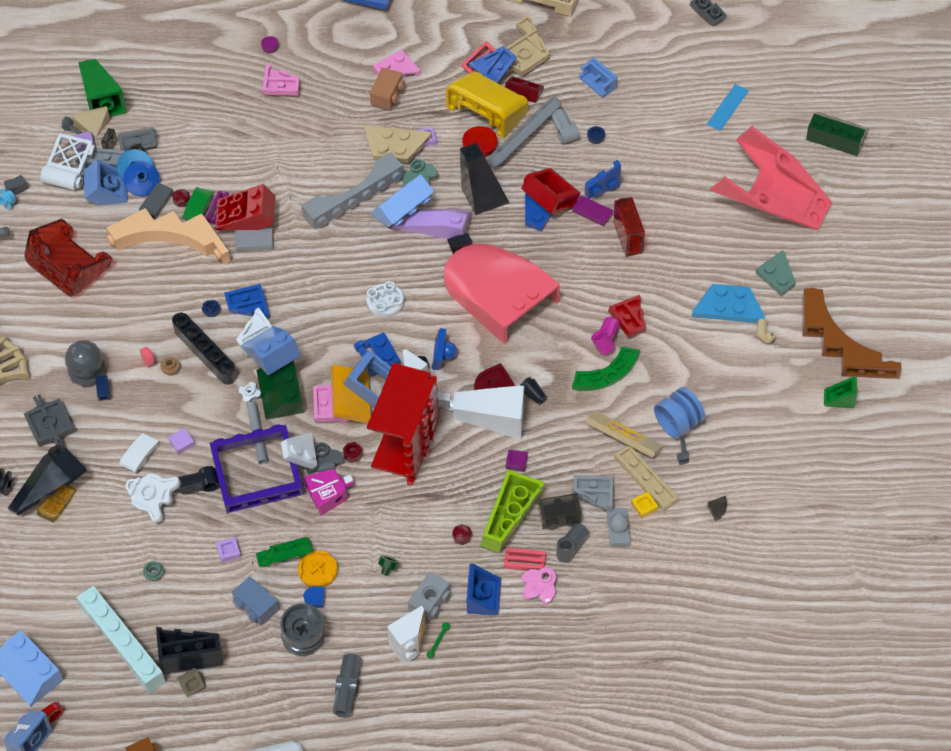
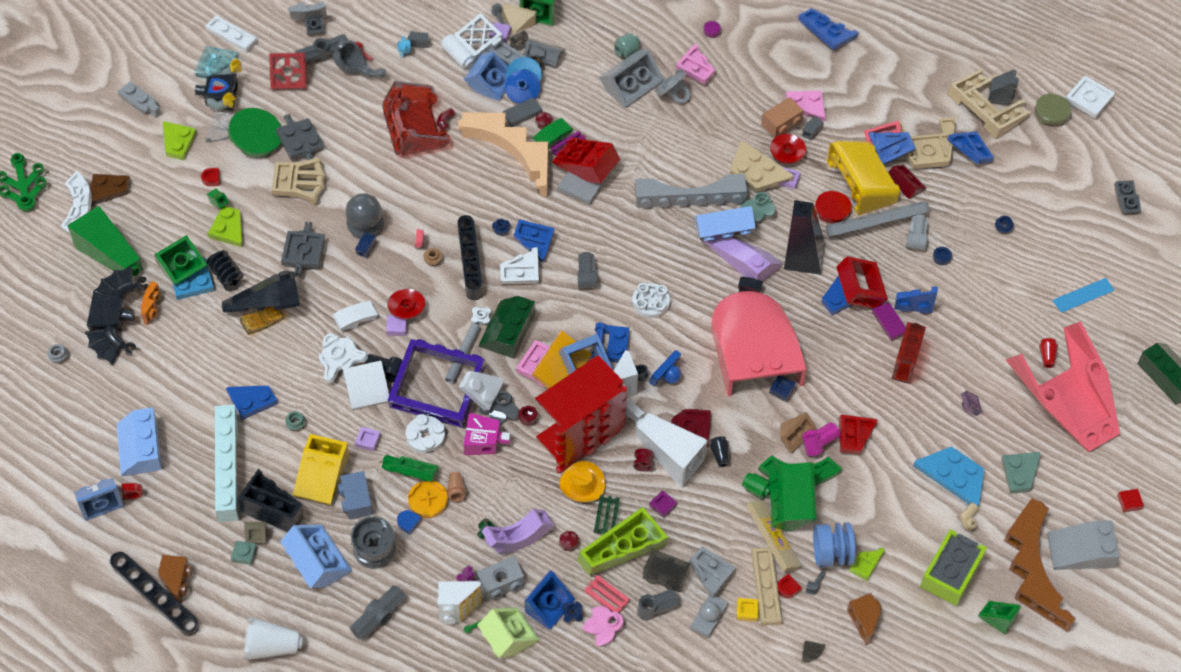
camera: 30 degrees right, 0 degrees up
(89, 242) = (443, 117): none -> dark red arm
(99, 574) = (251, 399): none -> blue wing
(178, 417) = (406, 303): none -> red dish
(191, 705) = (243, 552): none -> sand green plate
(195, 504) = (366, 385): none -> white slope
(207, 96) = (627, 45): none -> sand green head
(209, 596) = (321, 469): none -> yellow slope
(232, 121) = (632, 77): none -> light grey slope
(257, 671) = (315, 555): none -> light blue slope
(272, 349) = (518, 289): medium blue slope -> none
(273, 109) = (672, 85): none -> light grey tile
(275, 507) = (428, 443): none -> white plate
(315, 307) = (587, 275): none -> dark grey piece
(335, 545) = (456, 489): none -> nougat cone
(399, 610) = (467, 574): none -> magenta plant
(409, 112) = (787, 148): none -> red dish
(416, 85) = (812, 128): none -> dark grey piece
(419, 550) = (520, 534): none -> lavender arch
(438, 480) = (582, 482): none -> light orange hat
(466, 636) = (507, 631): none -> yellowish green slope
(471, 482) = (609, 501): none -> clear green tile
(476, 433) = (643, 460): none -> dark red wheel
(511, 585) = (576, 607): none -> dark blue plate
(546, 312) = (782, 388): none -> dark blue plate
(558, 31) = (972, 146): none -> blue wing
(580, 340) = (792, 430): none -> medium nougat slope
(582, 401) = (757, 485): none -> green brick
(598, 77) = (980, 206): medium blue hinge -> none
(620, 392) = (792, 496): none -> green slope
(627, 82) = (1004, 220): none -> dark blue plate
(664, 468) = (788, 587): none -> red tile
(703, 241) = (971, 403): none -> clear purple plate
(712, 414) = (866, 563): none -> lime tile
(734, 167) = (1048, 351): none -> red cone
(741, 455) = (865, 614): none -> dark orange slope
(782, 377) = (953, 567): none -> piece
(867, 304) = (1084, 546): none -> light grey slope
(875, 249) = (1130, 500): none -> red tile

